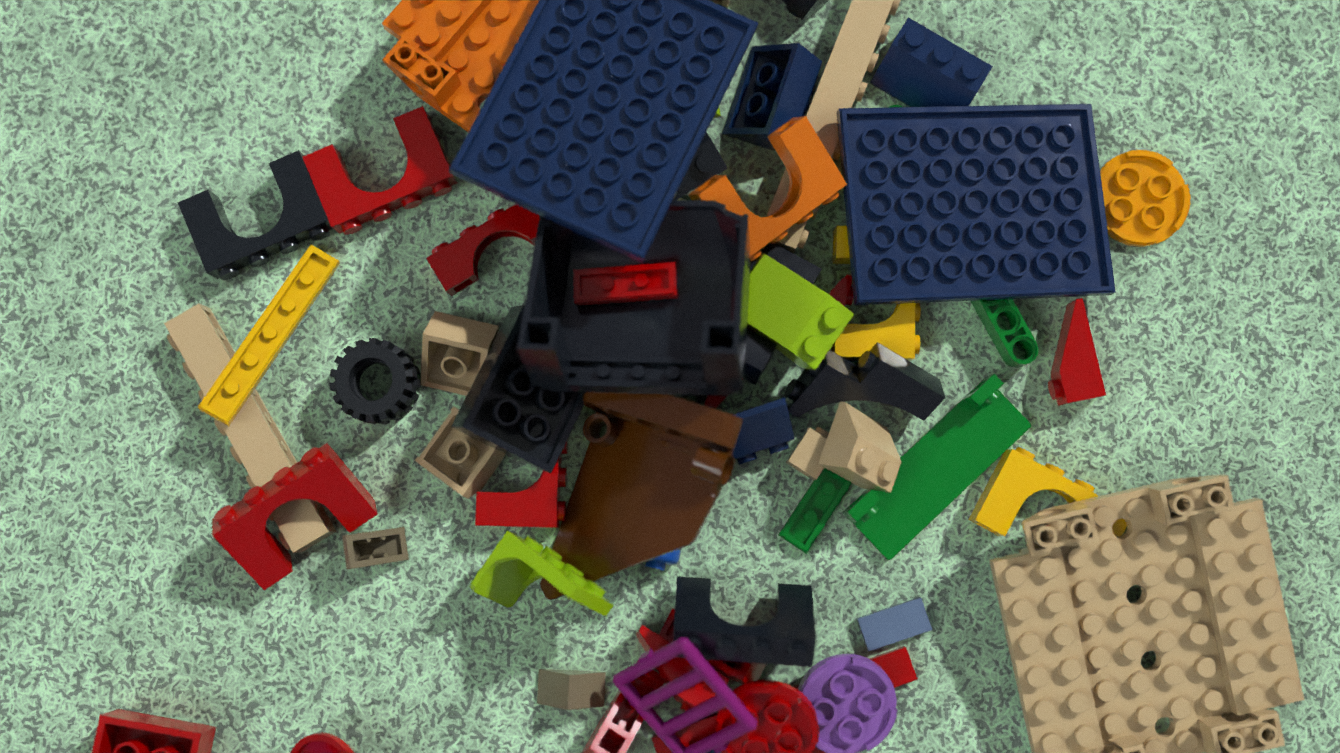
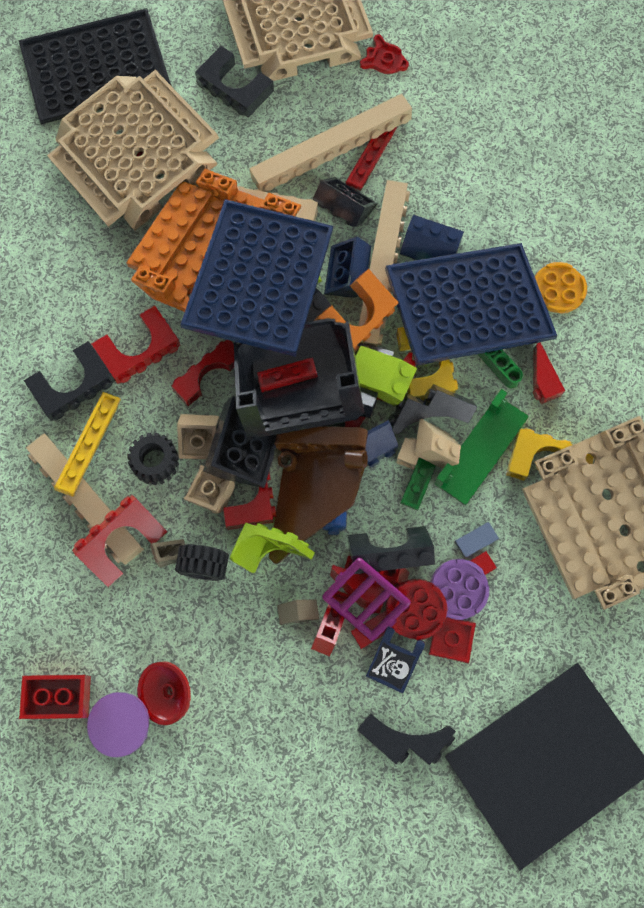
camera: 15 degrees left, 10 degrees down
(423, 582) = (201, 562): none -> black tyre

